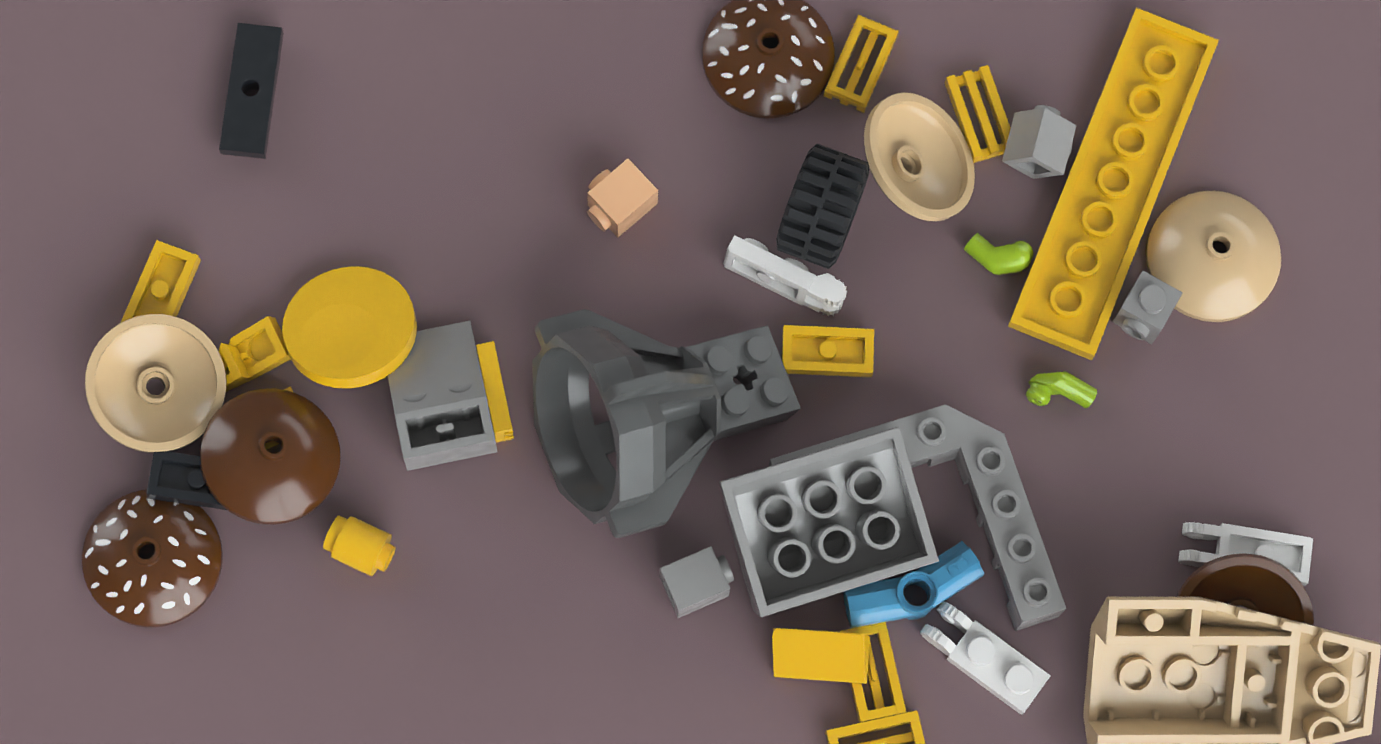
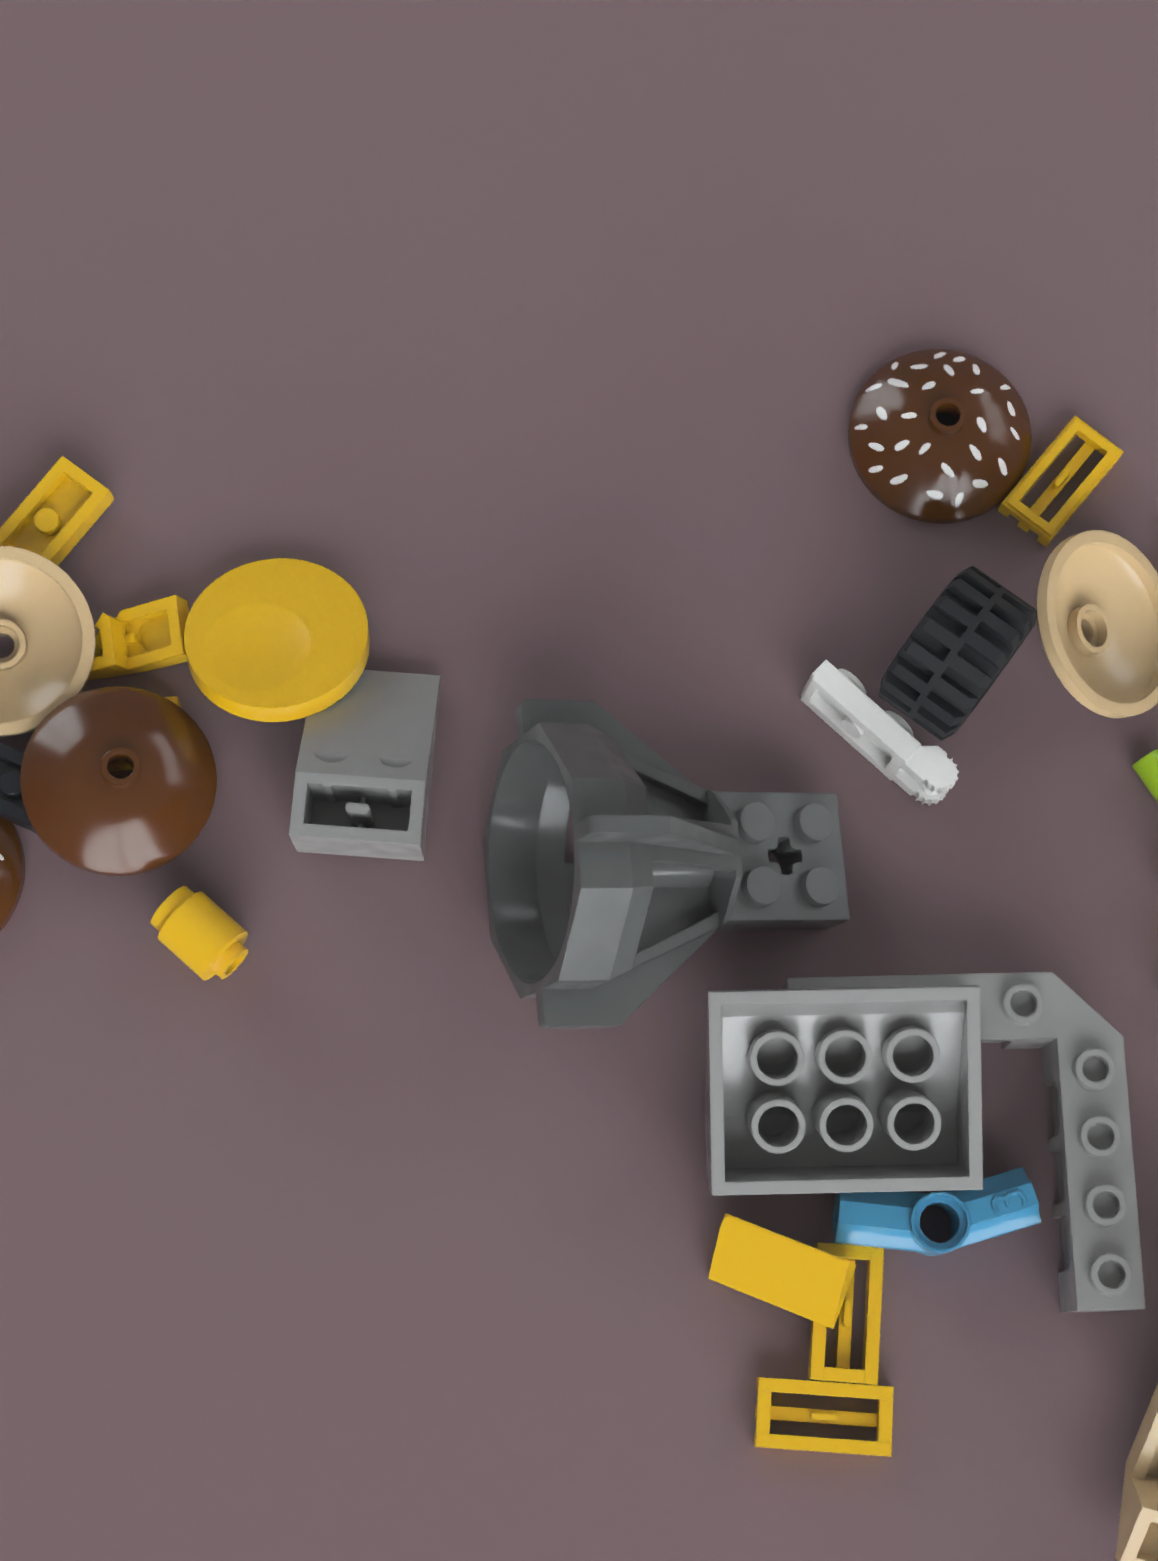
camera: 20 degrees right, 0 degrees up
(253, 67) = (257, 270): black tile -> none
(495, 391) = (443, 779): yellow tile -> none
(620, 198) = (687, 569): light nougat brick -> none
(696, 581) = (639, 1116): light grey brick -> none
(828, 351) = (909, 851): yellow plate -> none
(988, 660) = (1013, 1345): white hinge -> none

